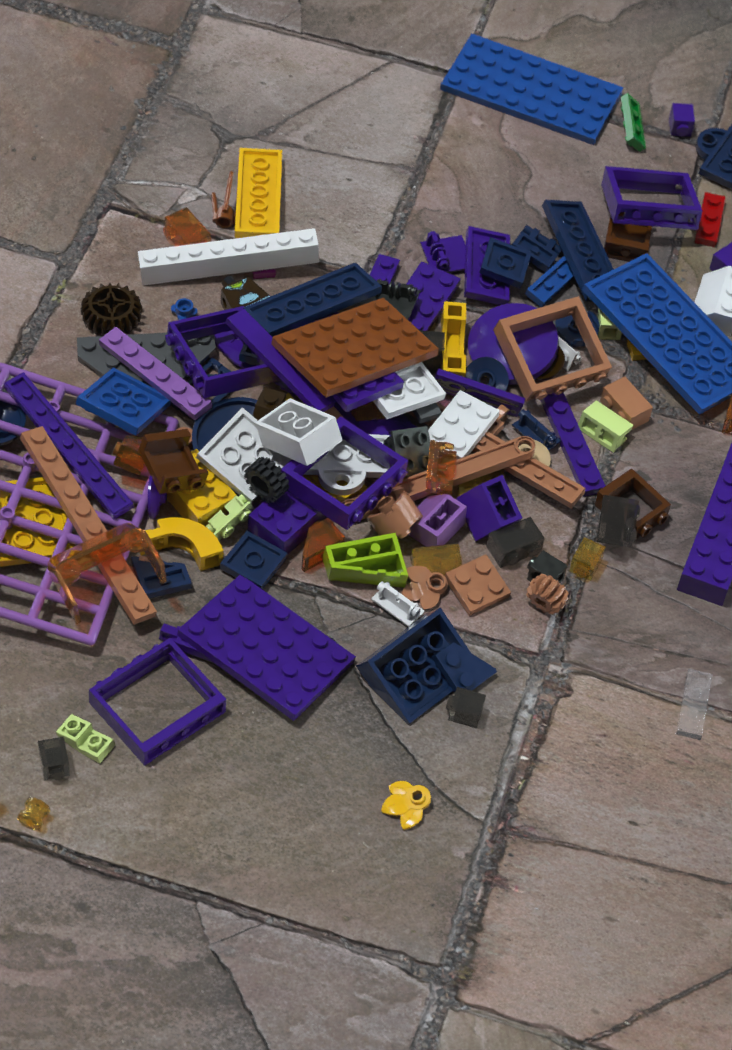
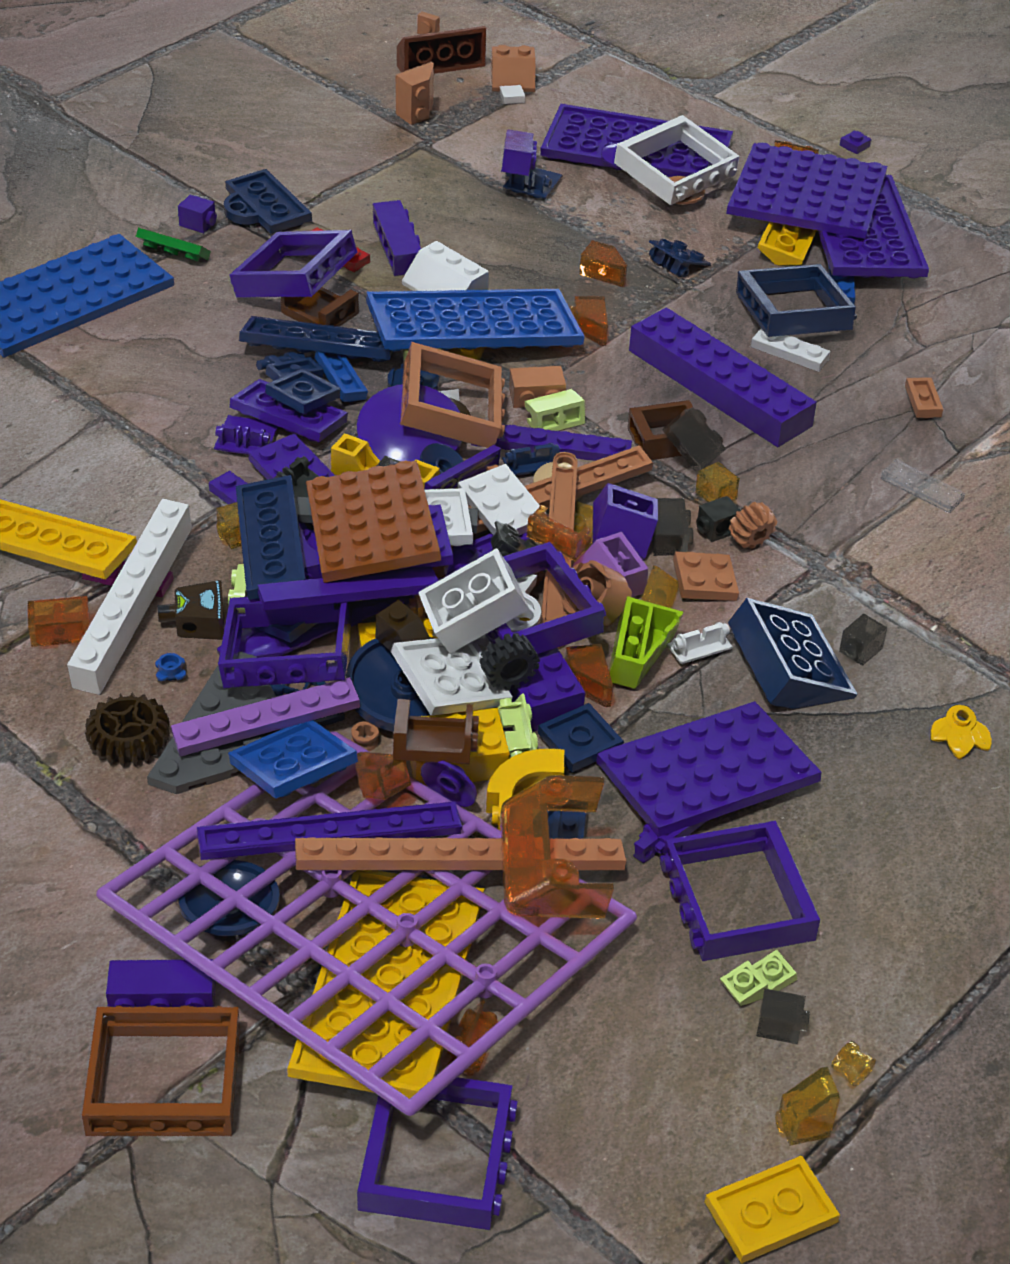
camera: 60 degrees left, 10 degrees down
(224, 216) = (53, 579): dark orange plant -> none
(421, 589) = (693, 615): nougat plate -> none
(462, 667) = (814, 624): dark blue wing -> none

